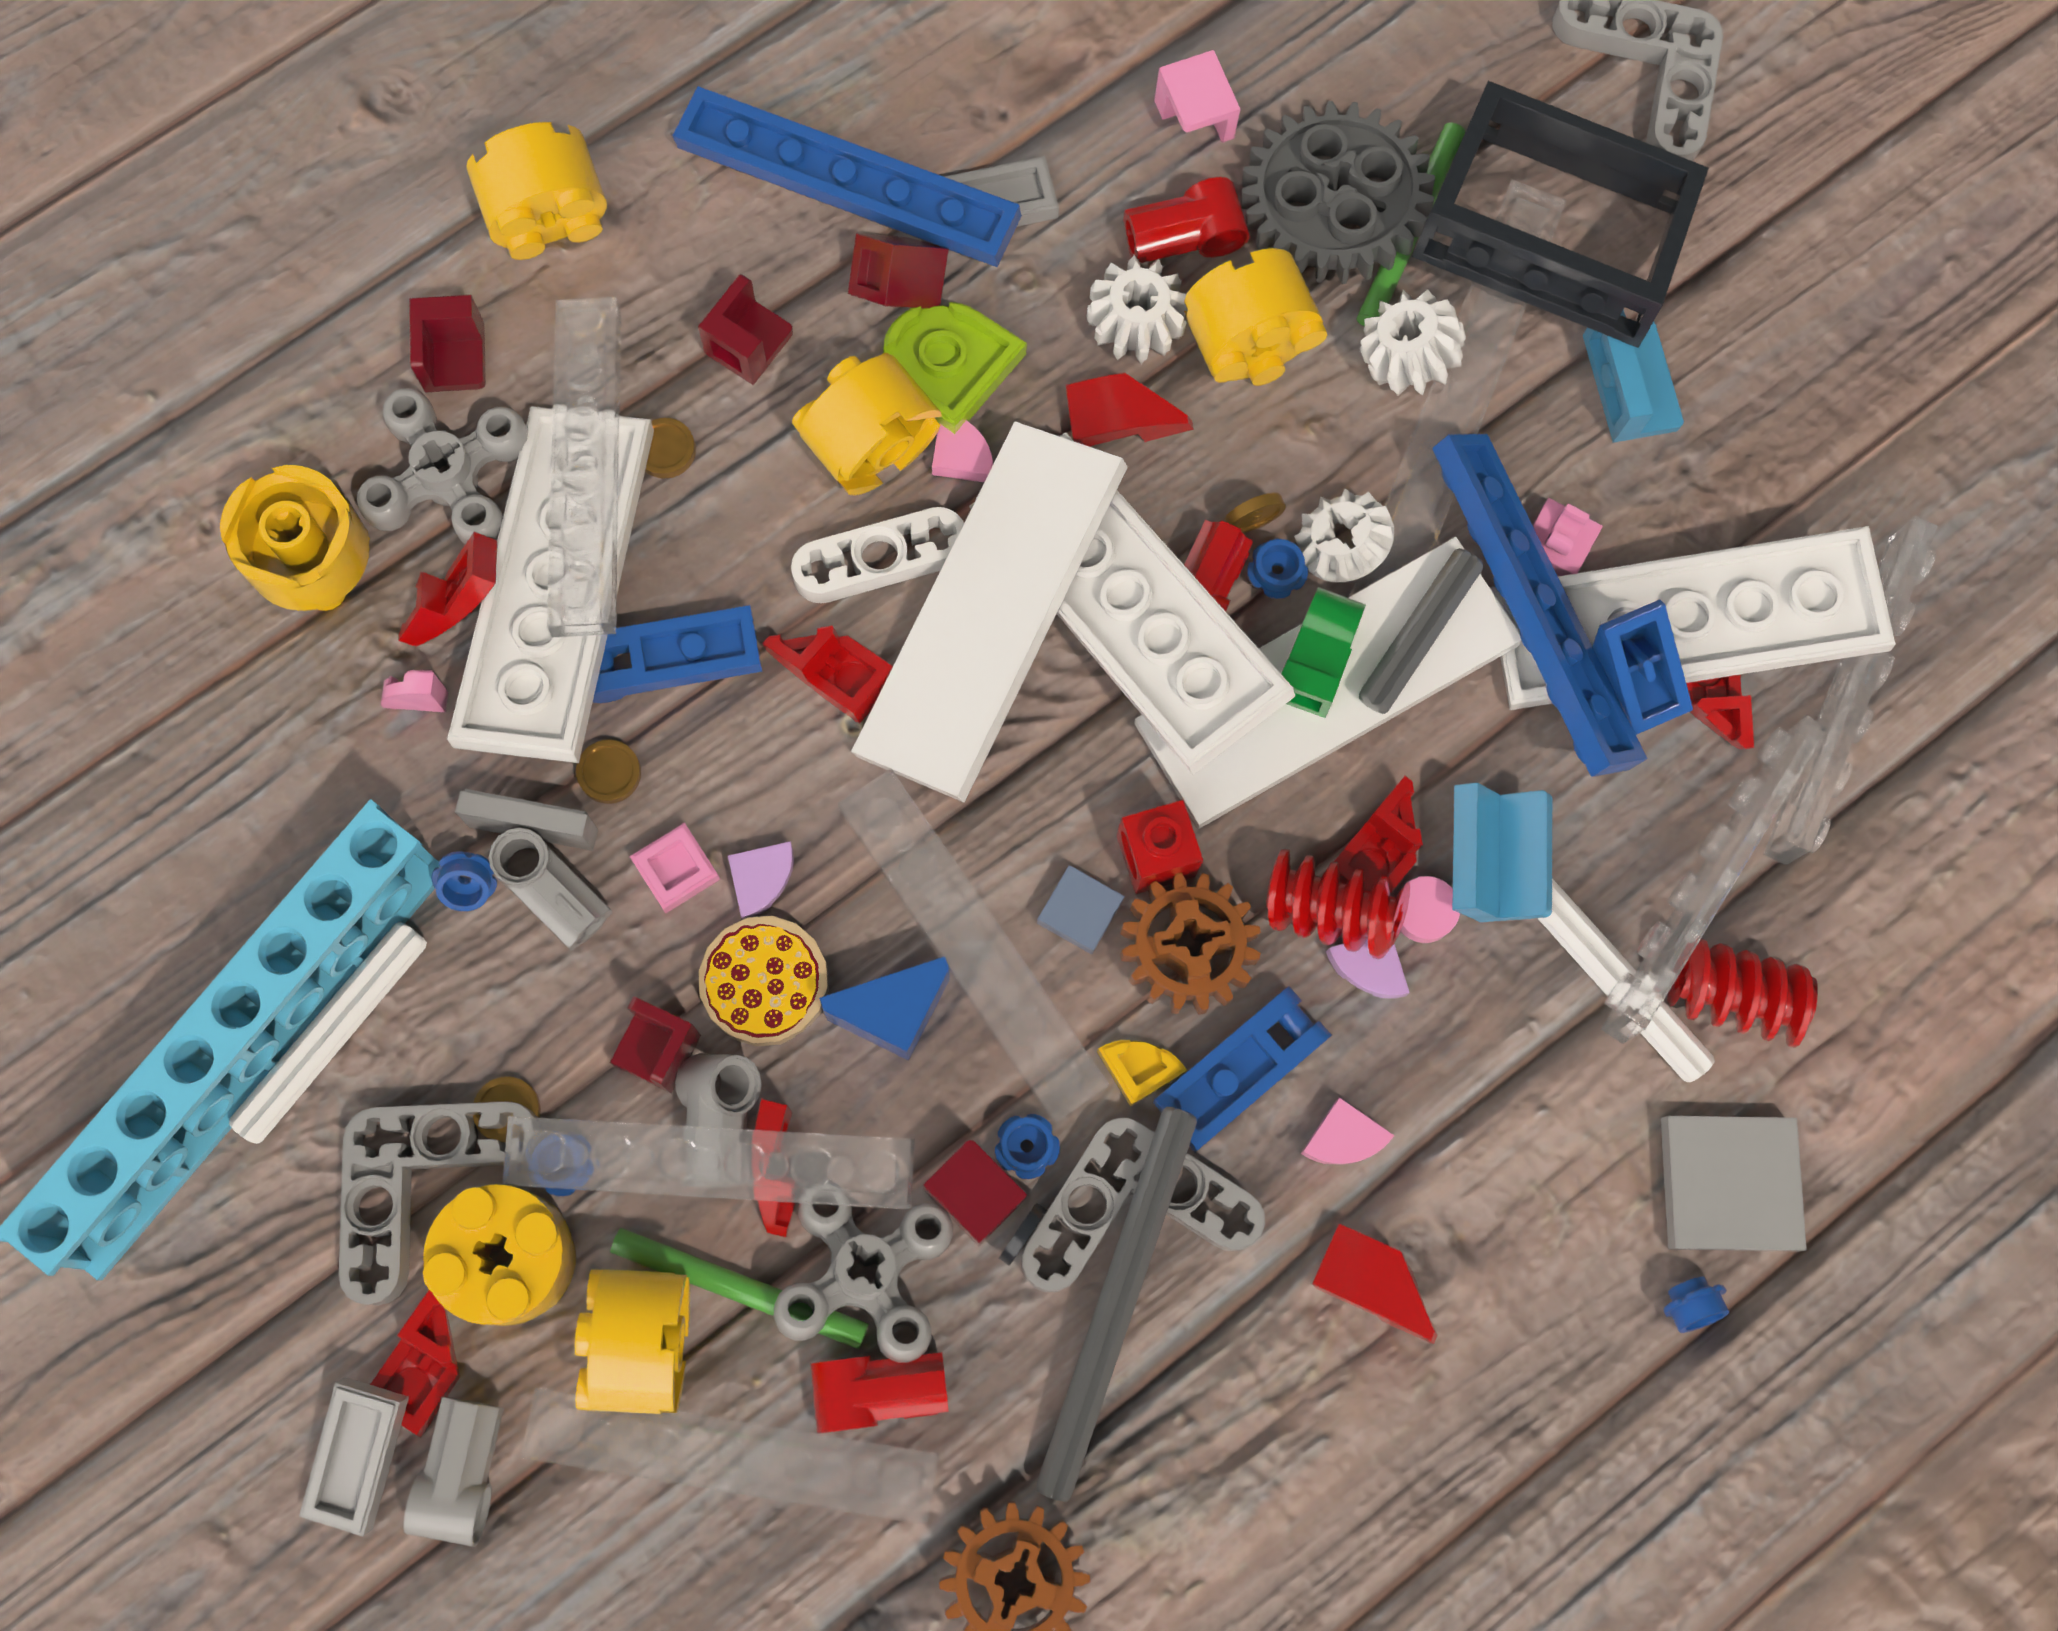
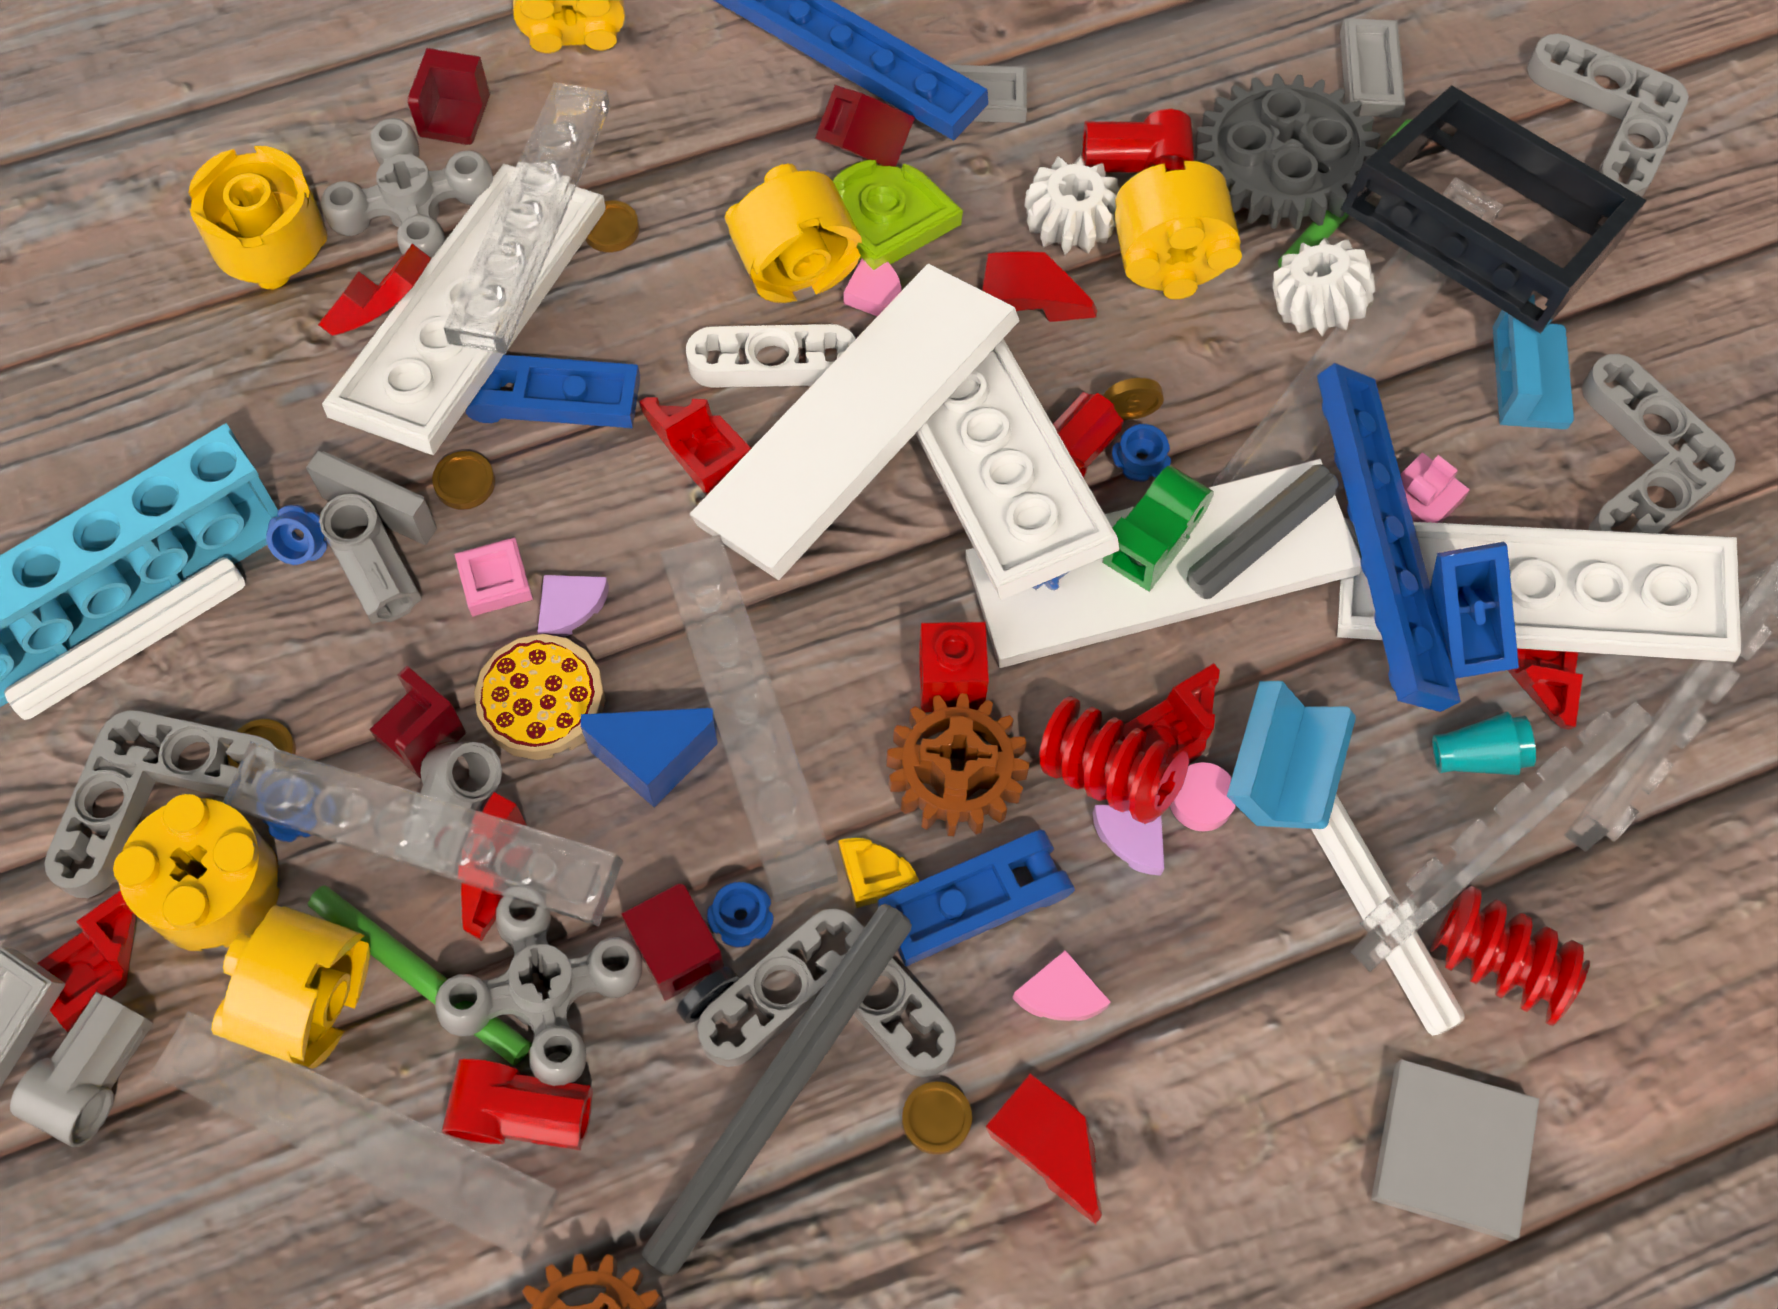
camera: 20 degrees right, 10 degrees down
(418, 691) = (314, 367): bright pink tile -> none
(743, 332) = (708, 145): dark red panel -> none
(1080, 909) = (861, 709): sand blue tile -> none
(1198, 95) = (1177, 42): bright pink panel -> none
(1263, 1285) = (936, 1117): none -> pearl gold piece
(1371, 533) = (1238, 441): white gear -> none
(1397, 66) = (1372, 66): none -> light grey tile
(1679, 789) = (1488, 746): none -> teal cone
(1696, 1304) = (1385, 1262): blue plate -> none
(1789, 450) = (1671, 468): none -> light grey beam

